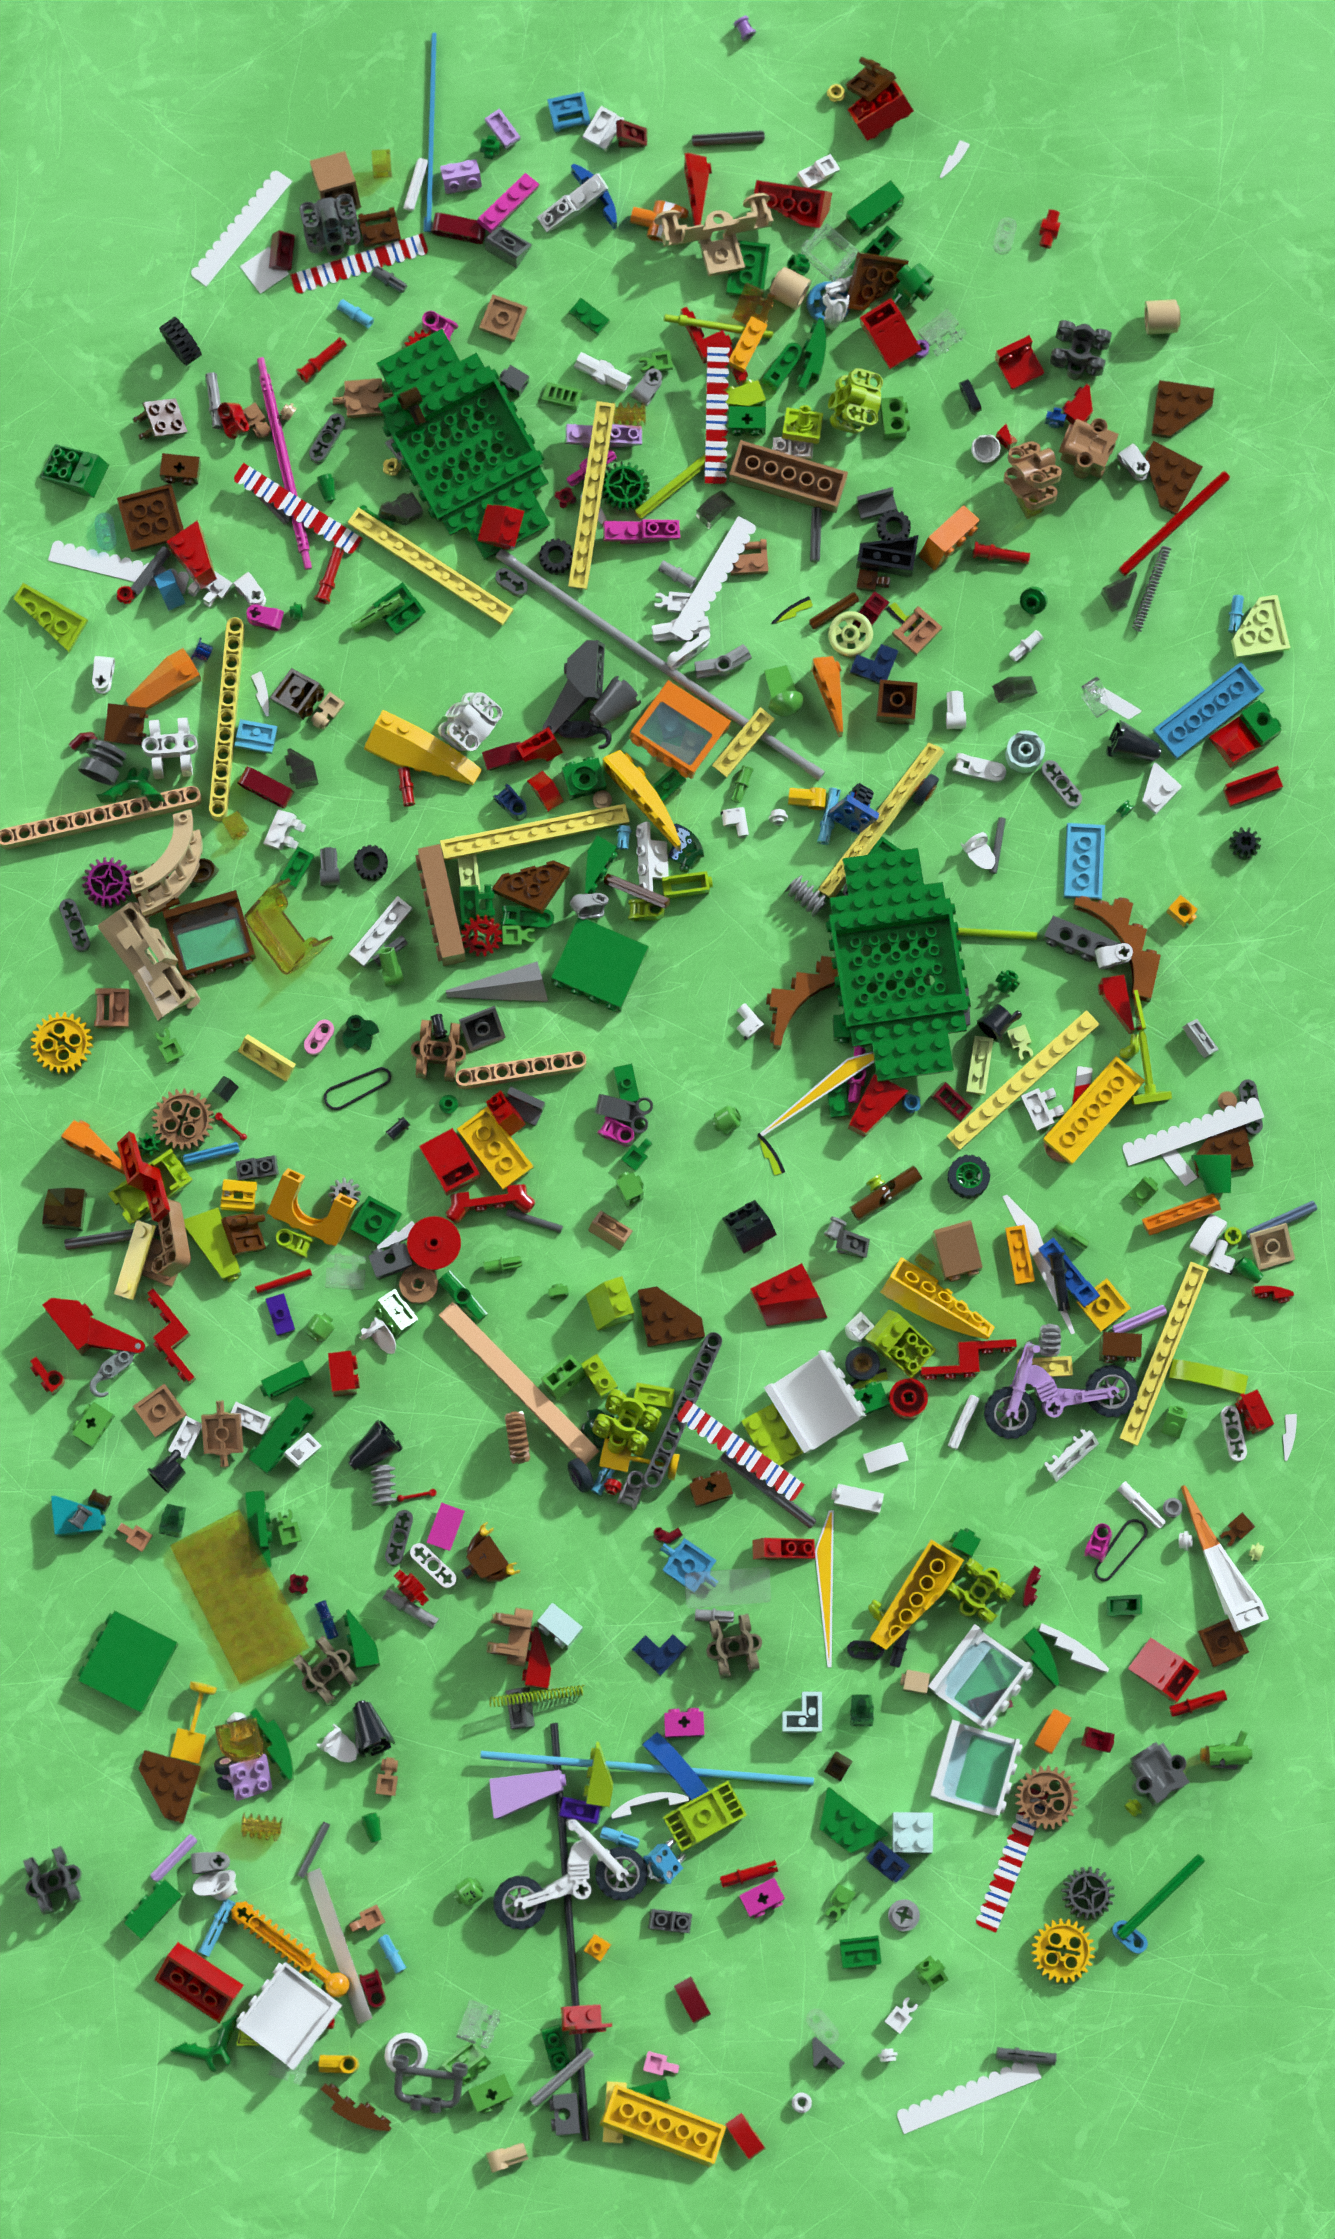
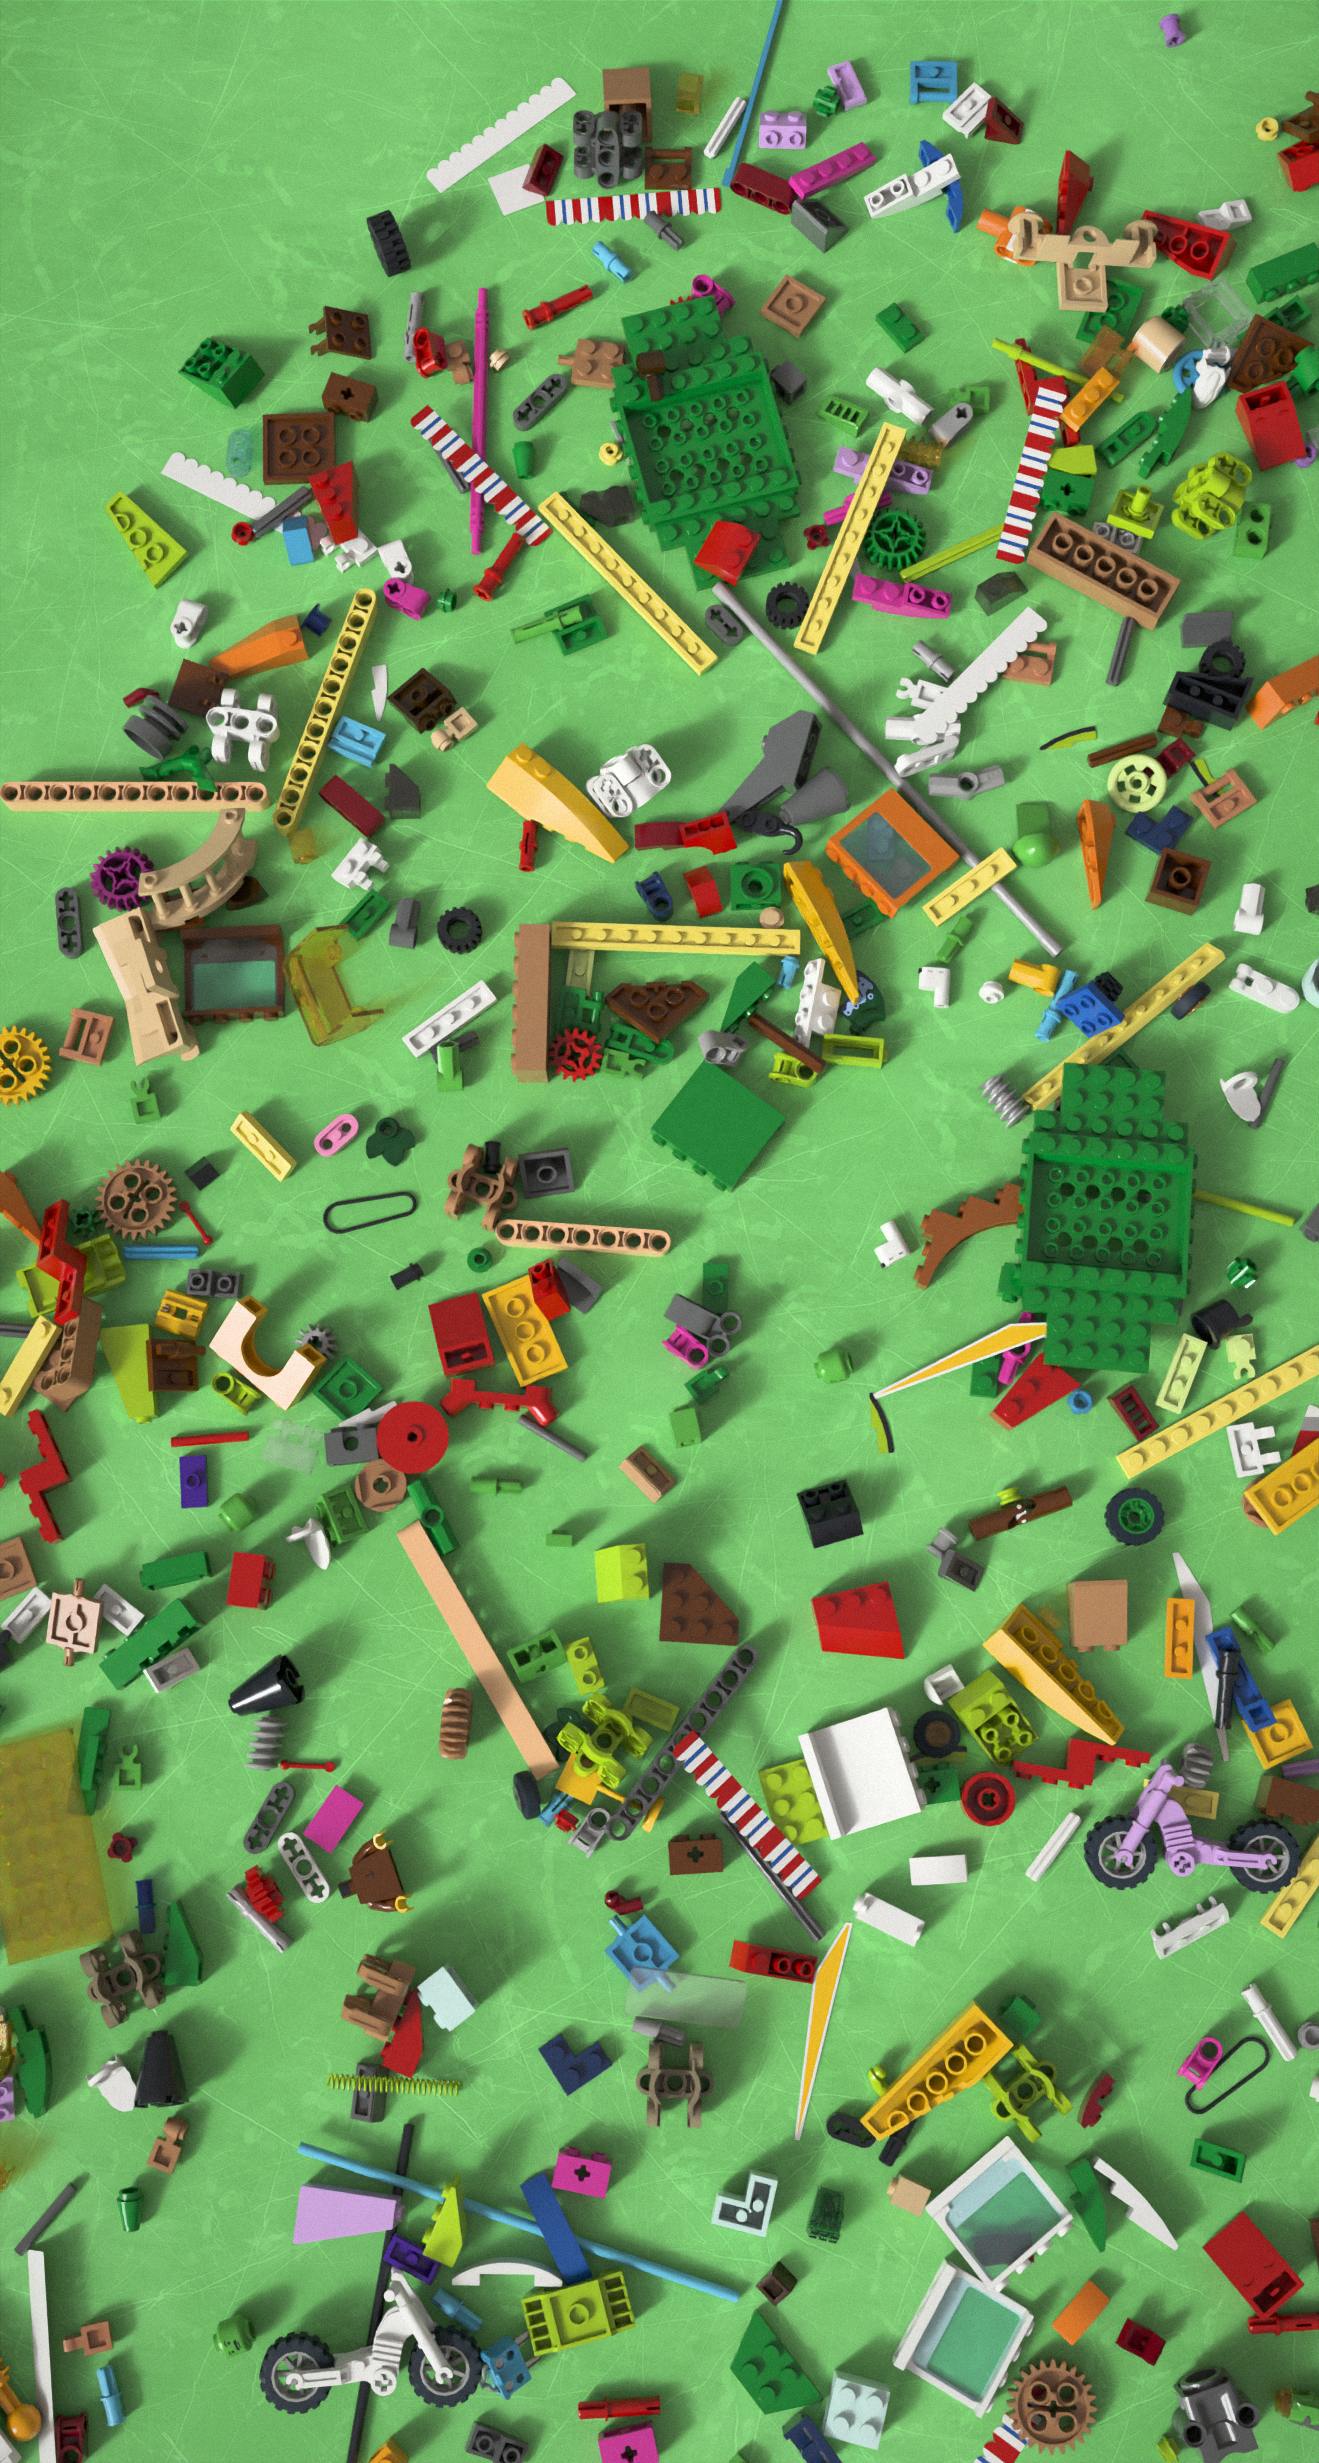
camera: 20 degrees right, 0 degrees up
(515, 984) = (603, 1126): light grey wedge -> none
(728, 138) = (1121, 154): dark grey axle -> none

